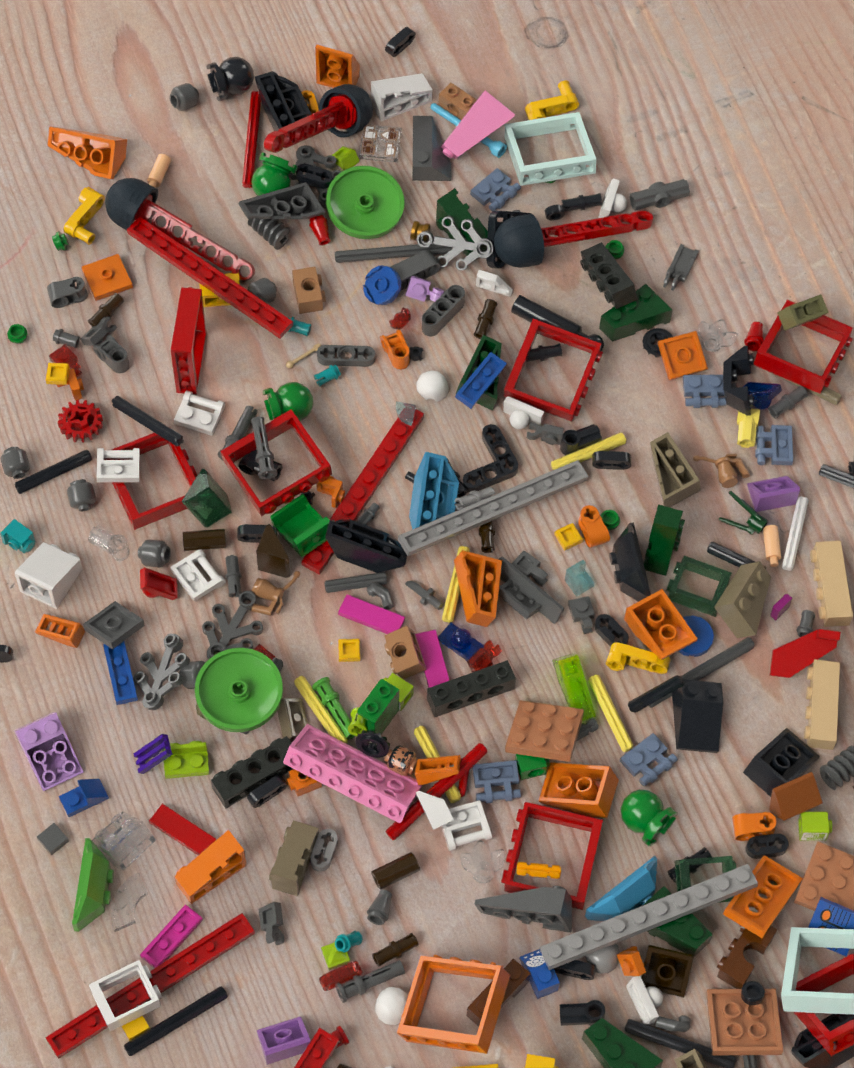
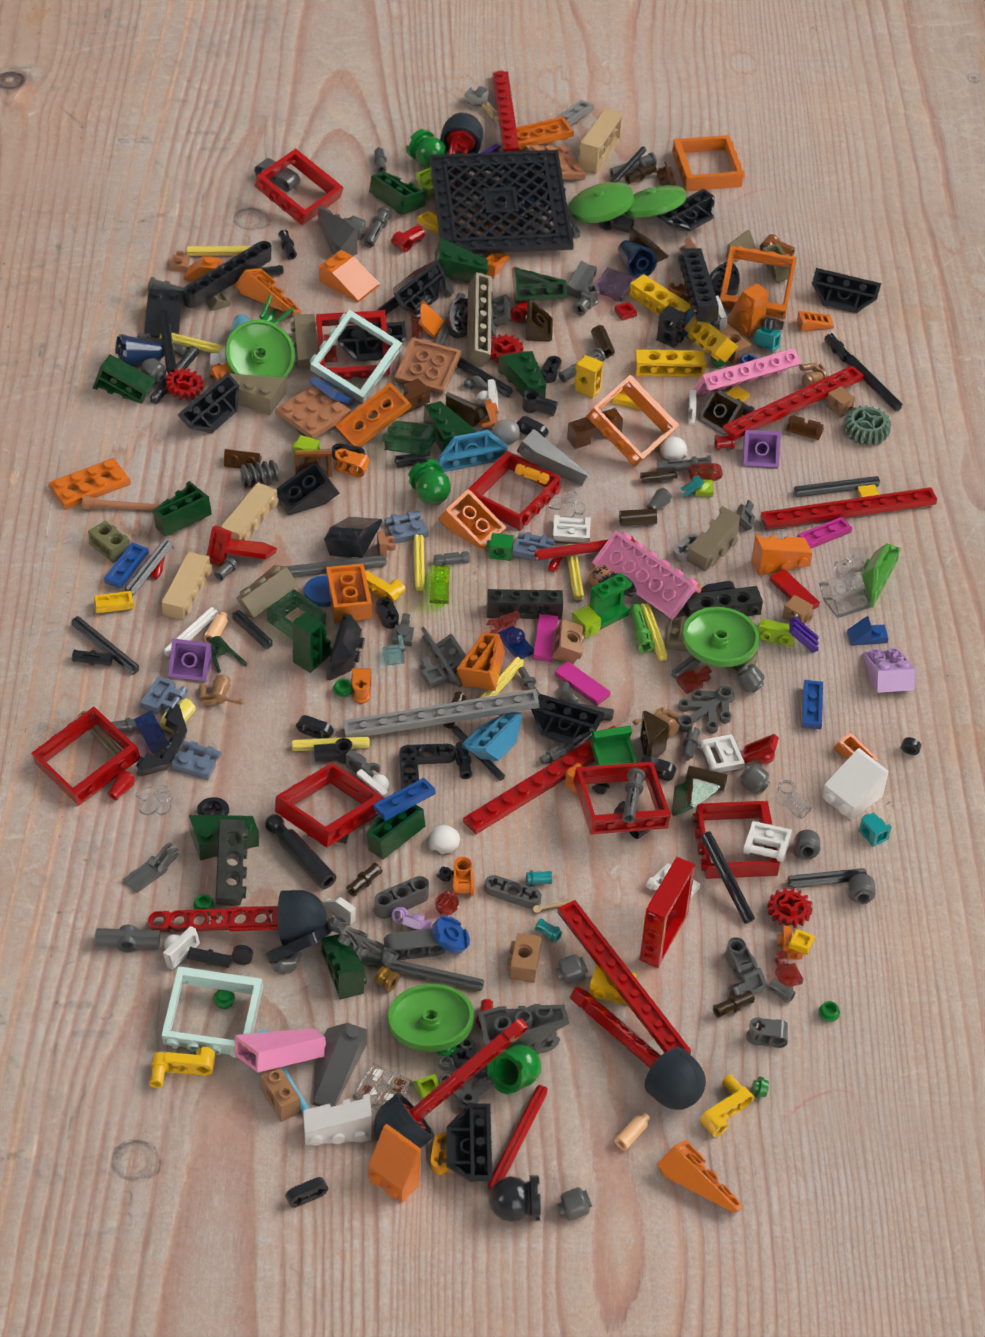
camera: 160 degrees left, 15 degrees down
(52, 839) = (900, 616): dark grey tile -> none
(107, 277) = (722, 1040): orange plate -> none
(113, 625) = (808, 732): dark grey plate -> none
(117, 977) = (872, 484): white window -> none
(153, 696) = (791, 675): dark grey plant -> none
(169, 793) = (799, 608): none -> medium nougat brick
(241, 428) = (649, 848): dark grey pin -> none
(287, 397) = (587, 851): green tile -> none
(349, 650) = (611, 666): yellow tile -> none
(356, 723) = (625, 609): lime bush -> none
(405, 412) = (481, 815): clear light blue tile -> none
(433, 769) = (580, 563): orange slope -> none
(435, 809) = (592, 531): white tile -> none
(473, 497) = (465, 727): light grey pin -> none
(491, 186) = (289, 1006): sand blue plate -> none
(541, 978) = (558, 430): blue slope -> none
(544, 731) = (481, 555): nougat plate -> none
(568, 536) = (384, 689): yellow tile -> none
(648, 916) = (466, 419): light grey plate -> none
(656, 693) = (380, 548): black axle -> none
(661, 718) = (385, 543): none -> nougat tile
(673, 471) = (268, 696): dark tan wedge -> none
(682, 355) = (199, 788): orange plate -> none
(752, 993) = (412, 373): black tile -> none
(781, 606) = (238, 582): magenta tile -> none
(803, 312) = (73, 756): olive brick -> none

